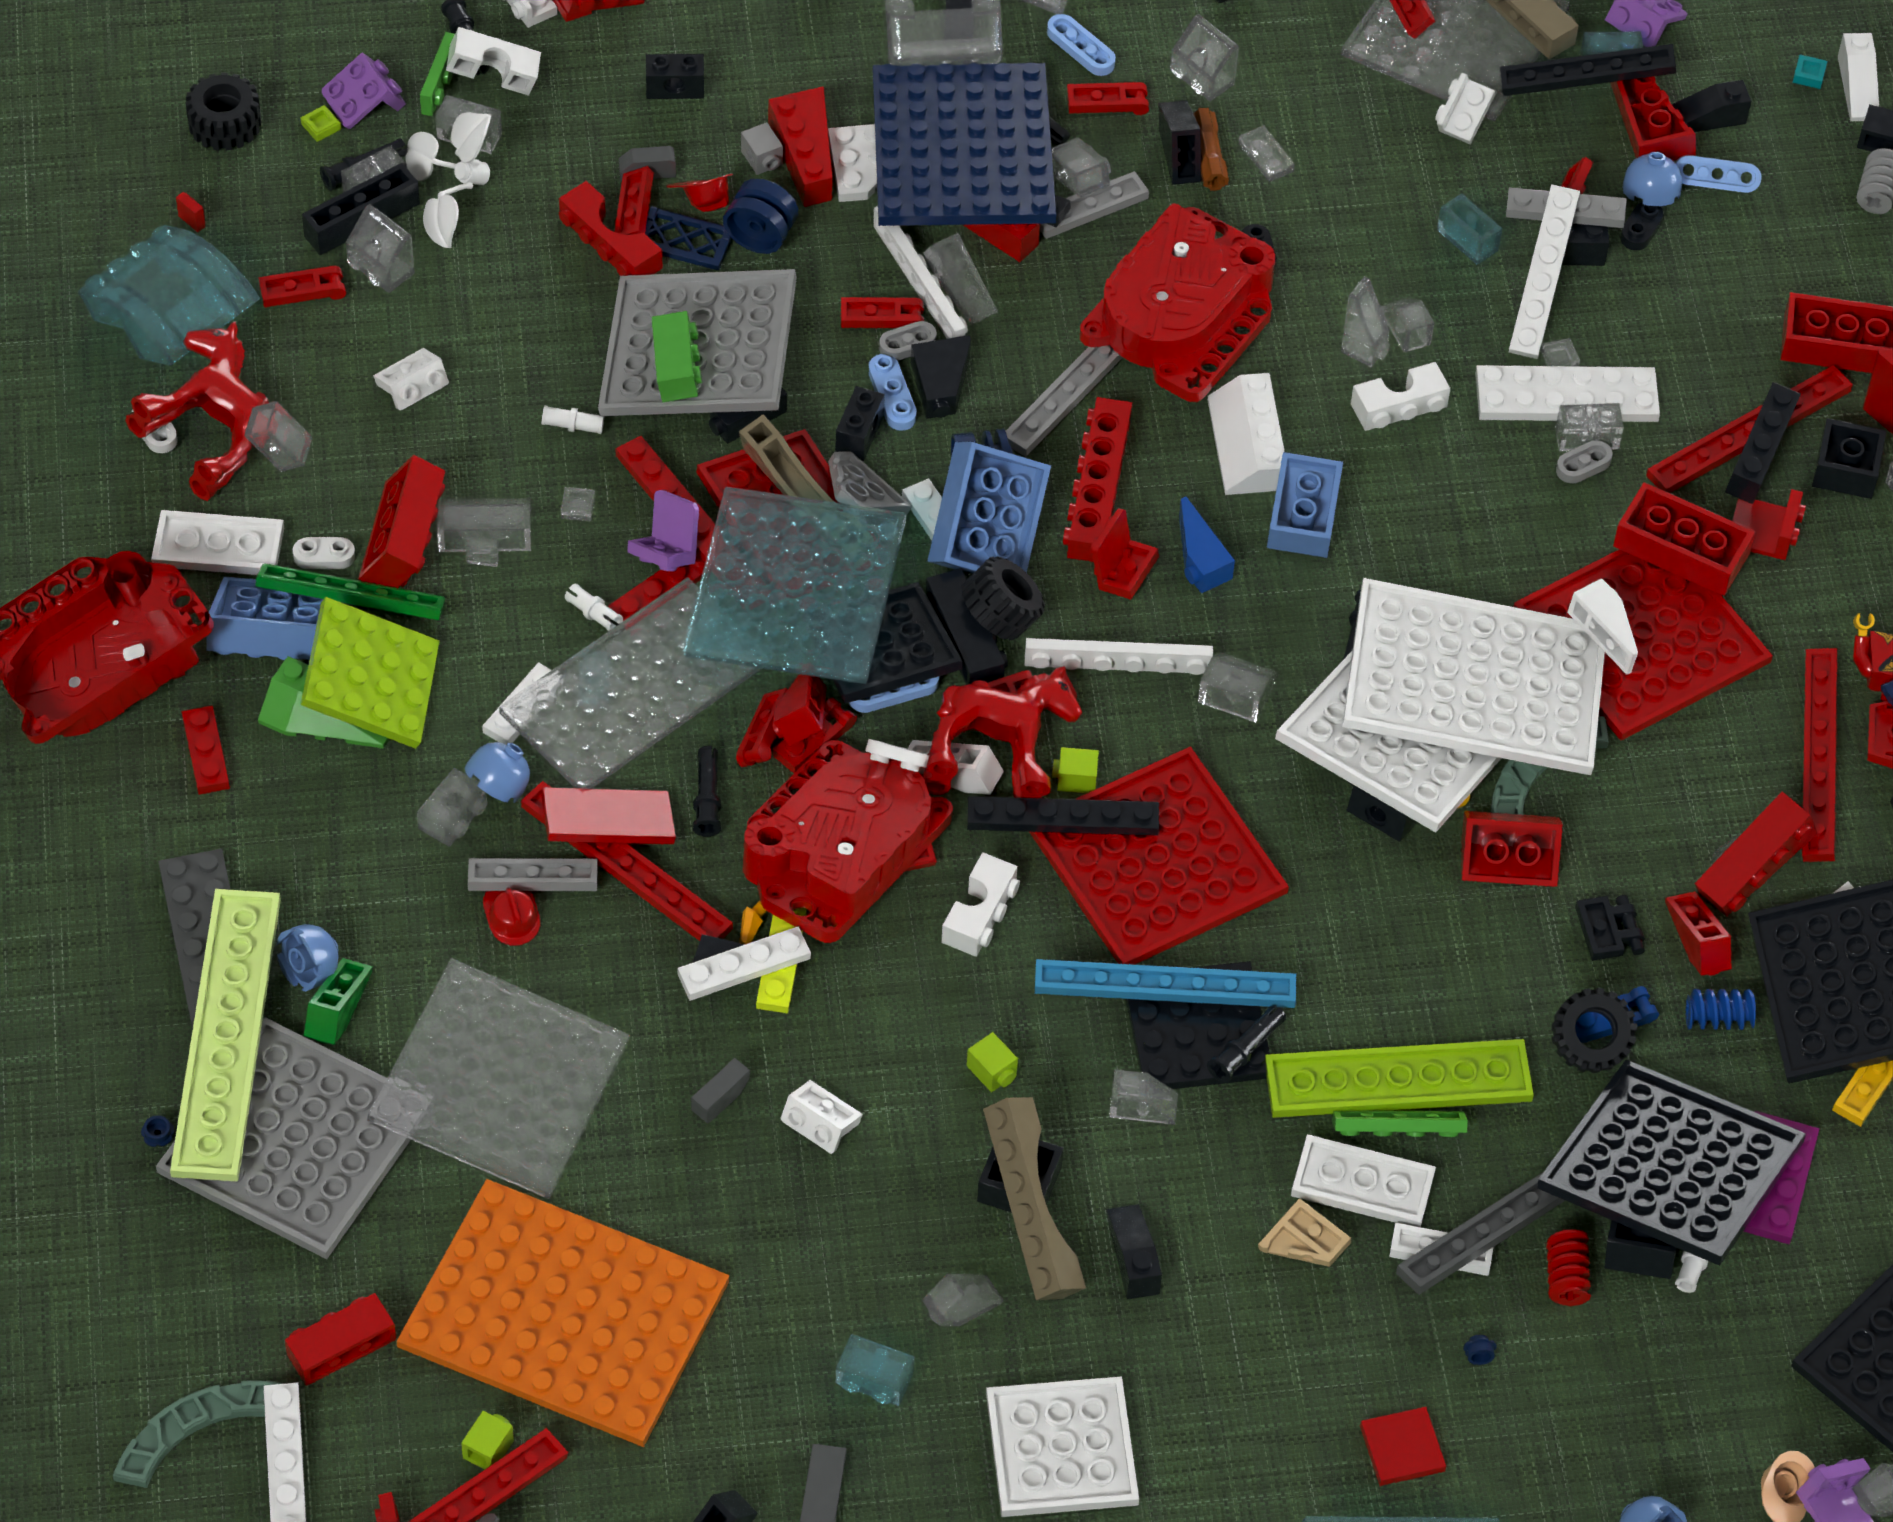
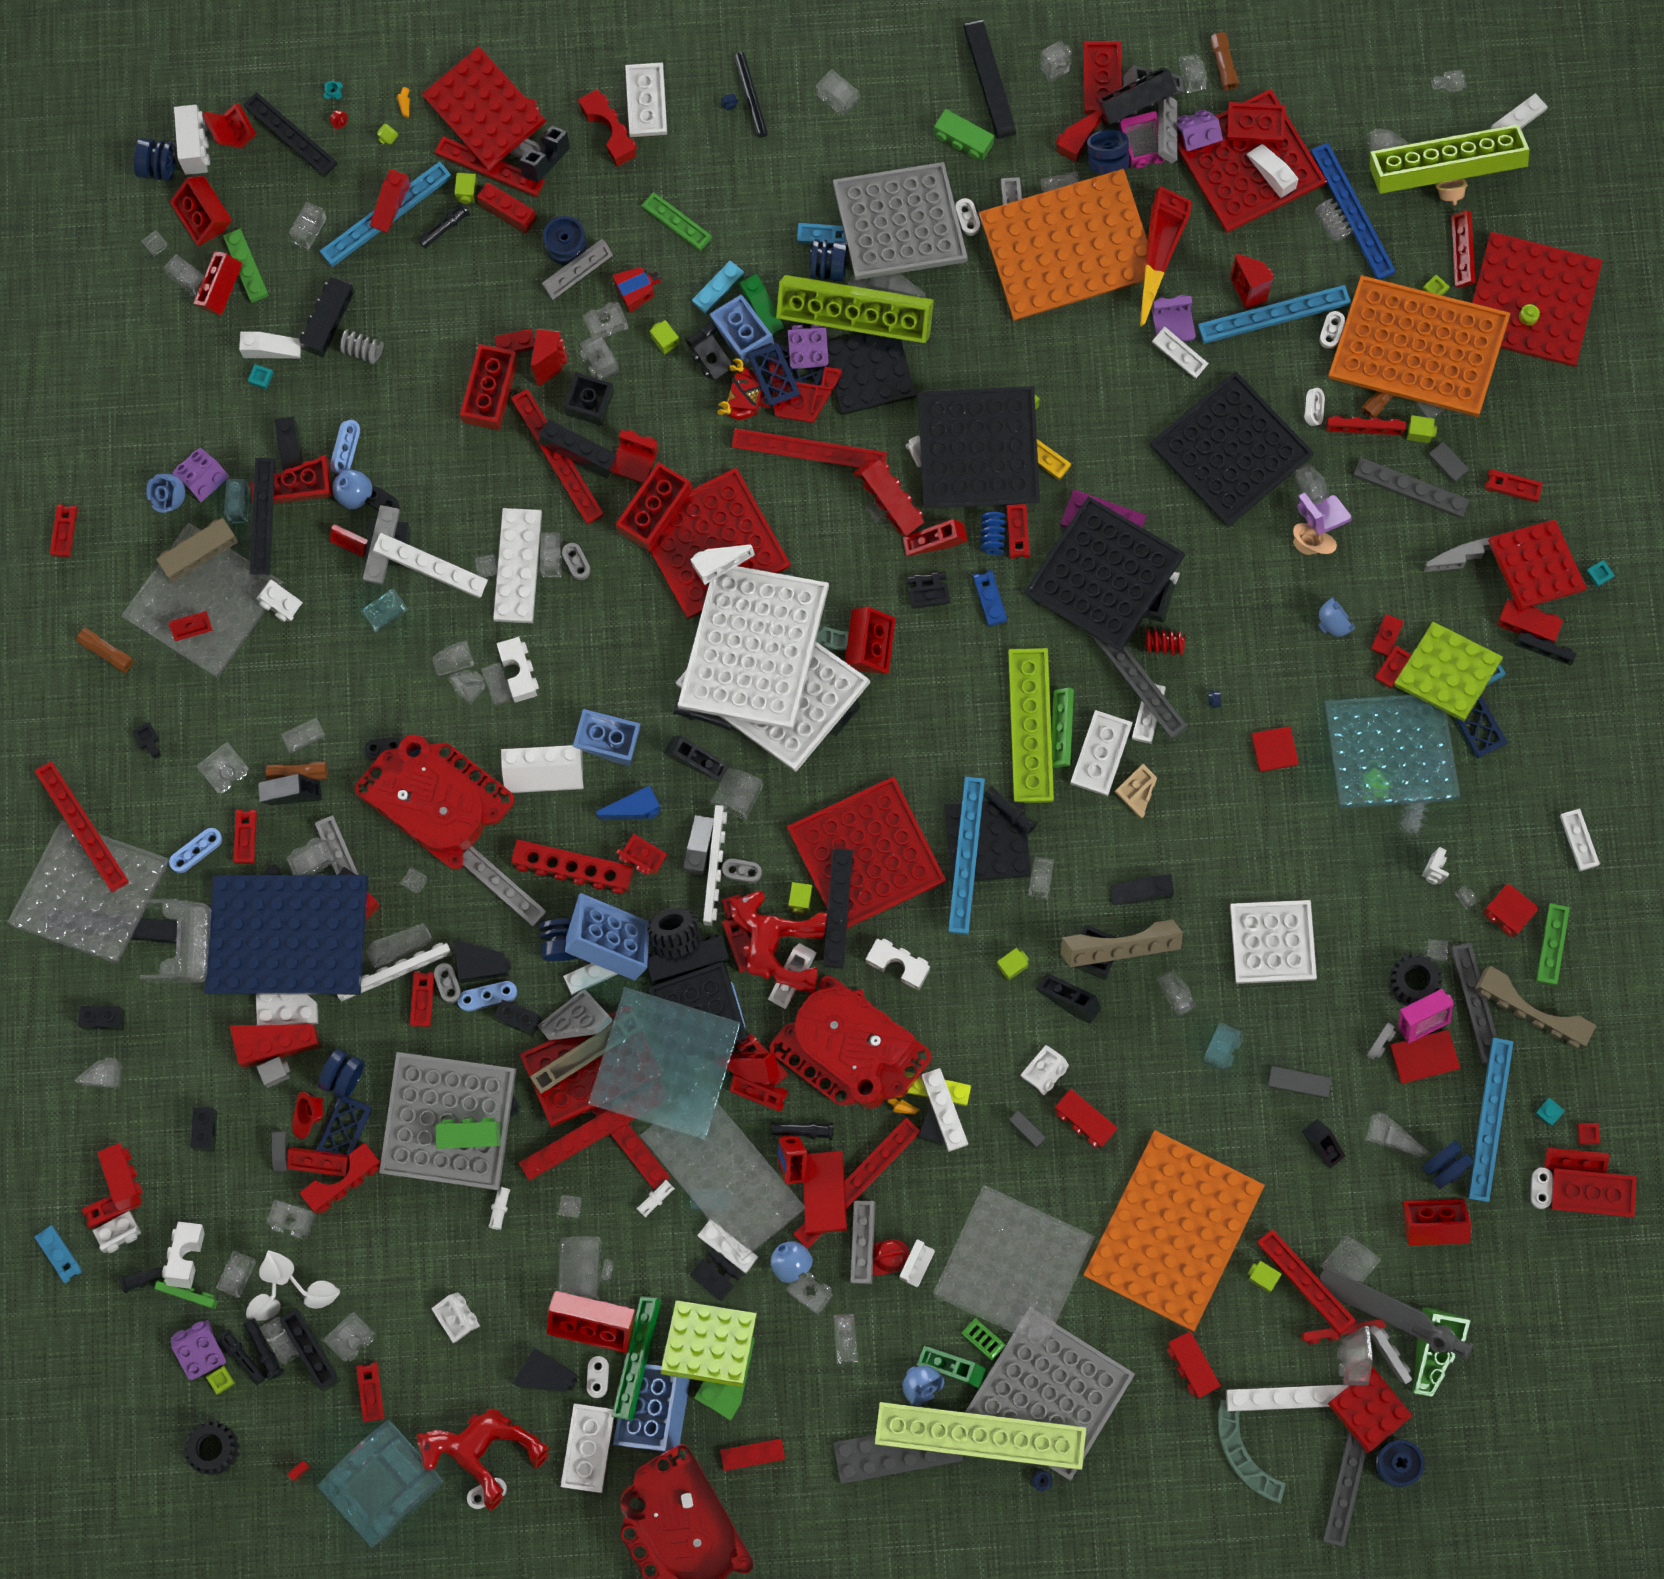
camera: 80 degrees left, 20 degrees up
(278, 436) = (509, 1405): clear brick -> none
(328, 484) = (545, 1374): none -> black slope
(359, 1049) = (1000, 1345): none -> bright green slope
(361, 133) = (233, 1350): none -> black pin
(383, 855) = (845, 1338): none -> clear slope
(472, 686) = (711, 1279): none -> black plate
(501, 942) = (916, 1263): none -> white bracket
(549, 180) = (281, 1211): none -> clear brick
(657, 766) = (792, 1151): none -> red torso
(673, 533) = (610, 1145): medium lavender bracket -> none
(741, 1173) = (1085, 1119): none -> red brick
(883, 752) = (803, 1005): white plate -> none
(941, 1145) = (1070, 998): none -> black slope
(1060, 296) = (414, 880): none -> clear tile
(1113, 696) = (742, 870): none -> light grey plate
(1141, 627) = (699, 846): none -> slope
(1287, 625) = (696, 758): none -> black slope
(1386, 367) = (497, 684): none -> clear plate
(1613, 1010) = (1022, 601): black tyre -> none
(1731, 1049) = (1017, 530): none -> red plate

